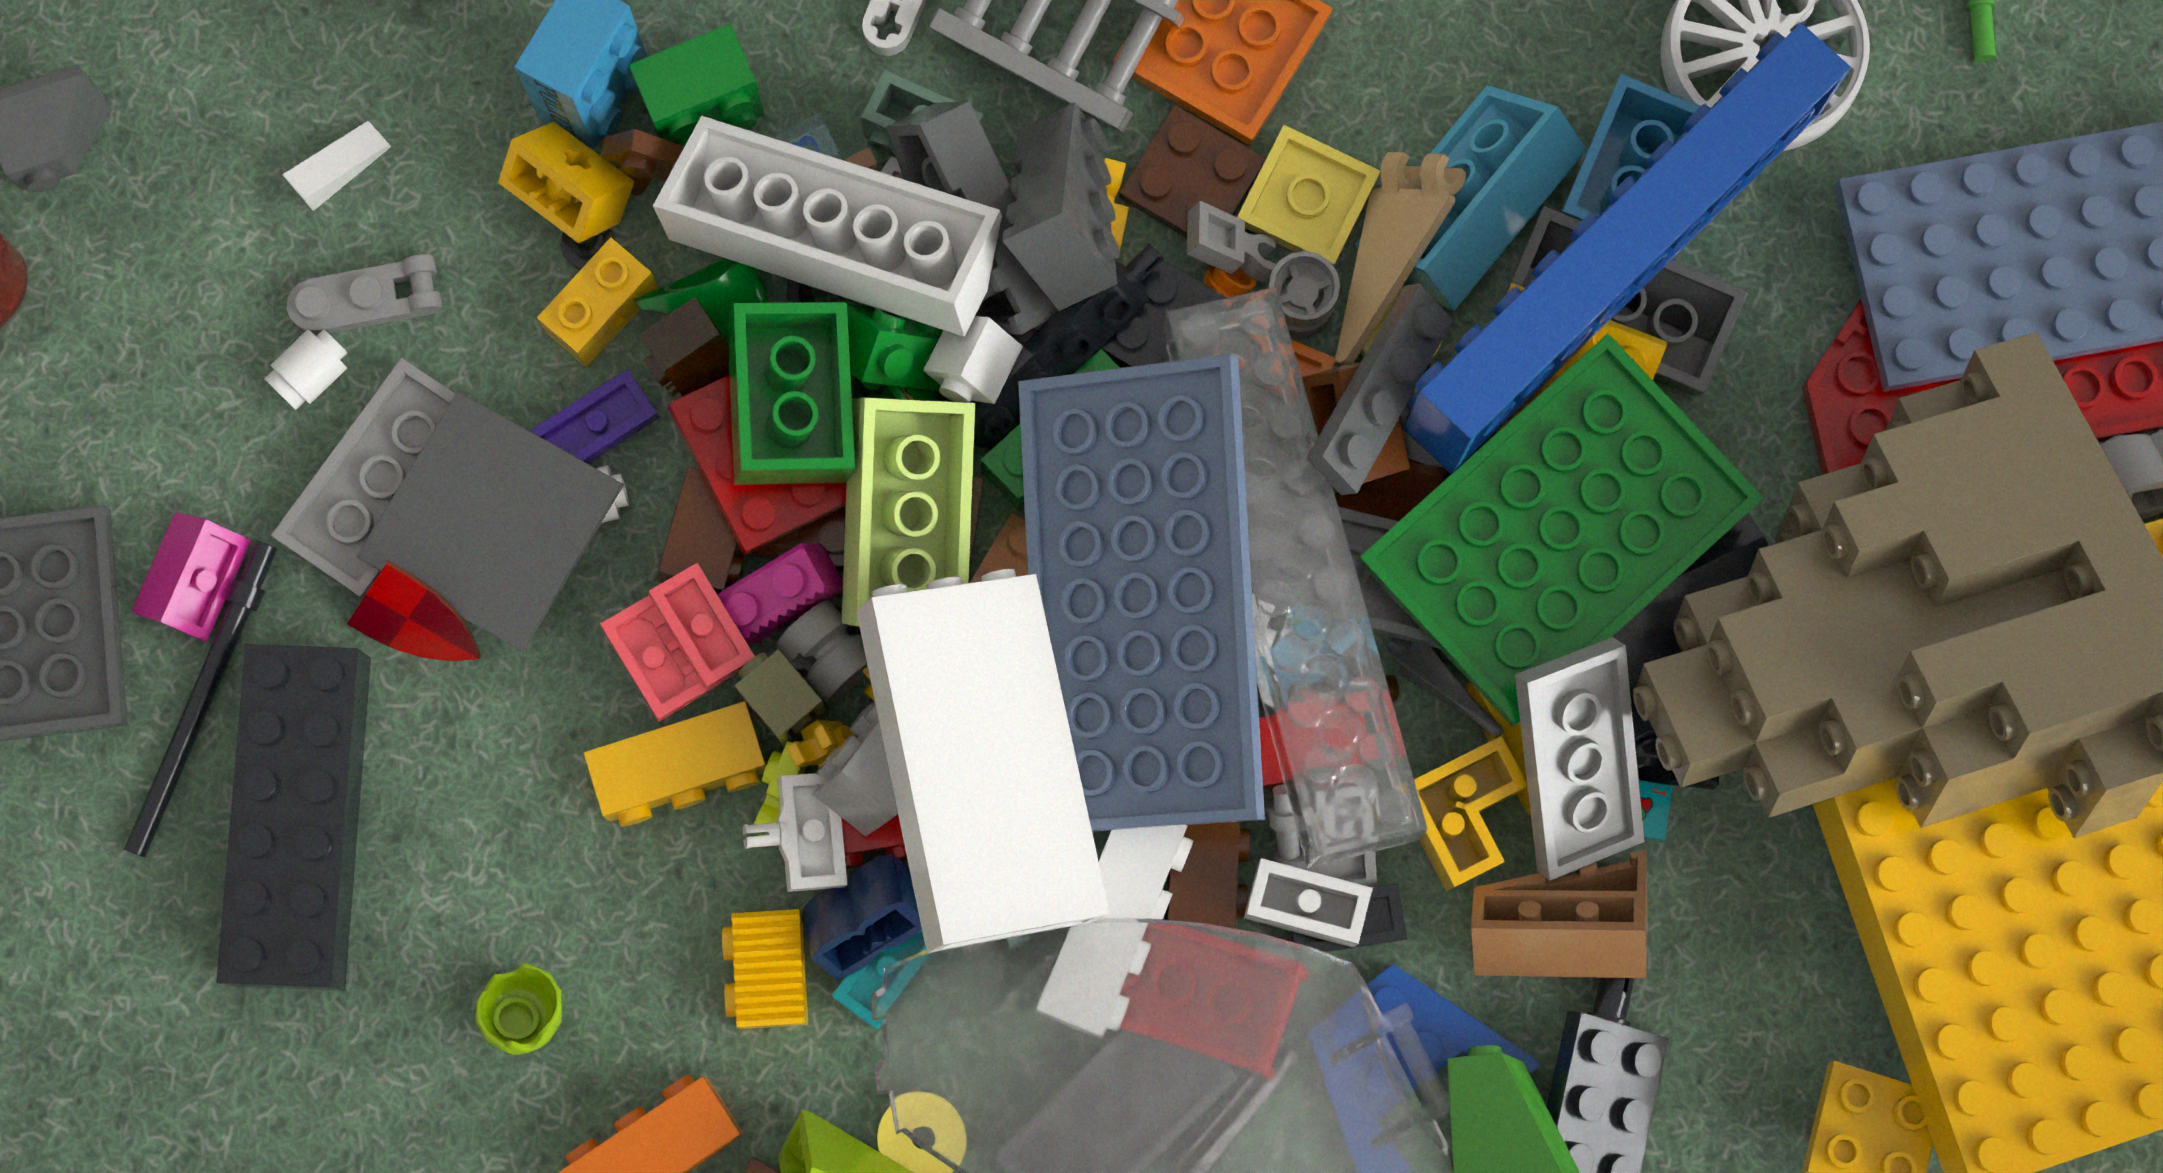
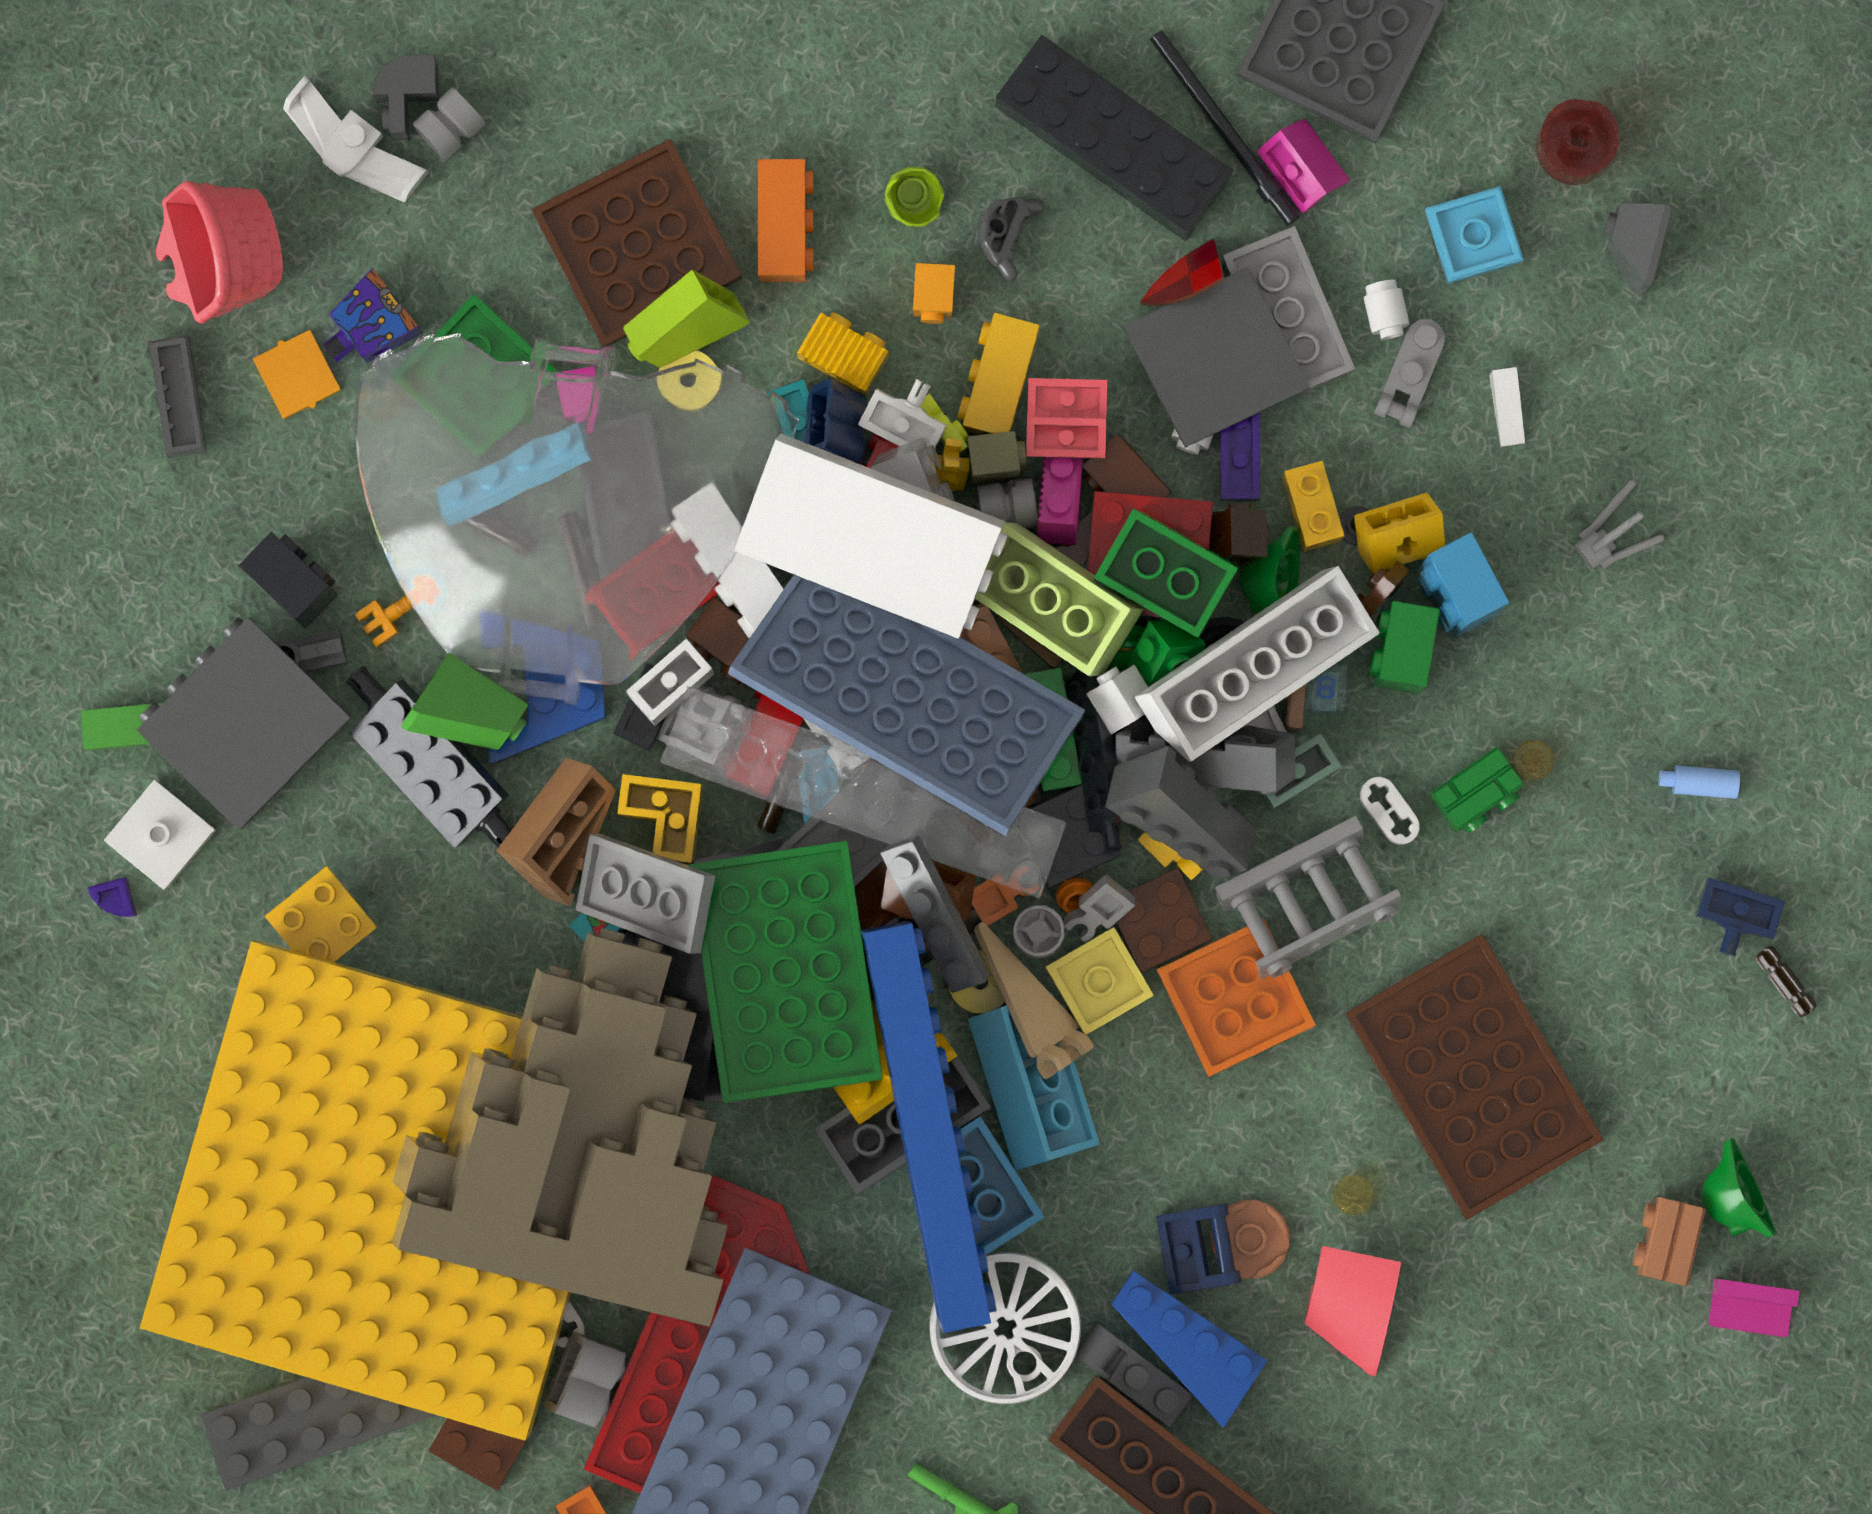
camera: 130 degrees right, 5 degrees up
(152, 326) = (1474, 235): none -> medium azure plate
(496, 877) = (1001, 228): none -> dark grey piece
(623, 907) = (933, 292): none -> light orange brick

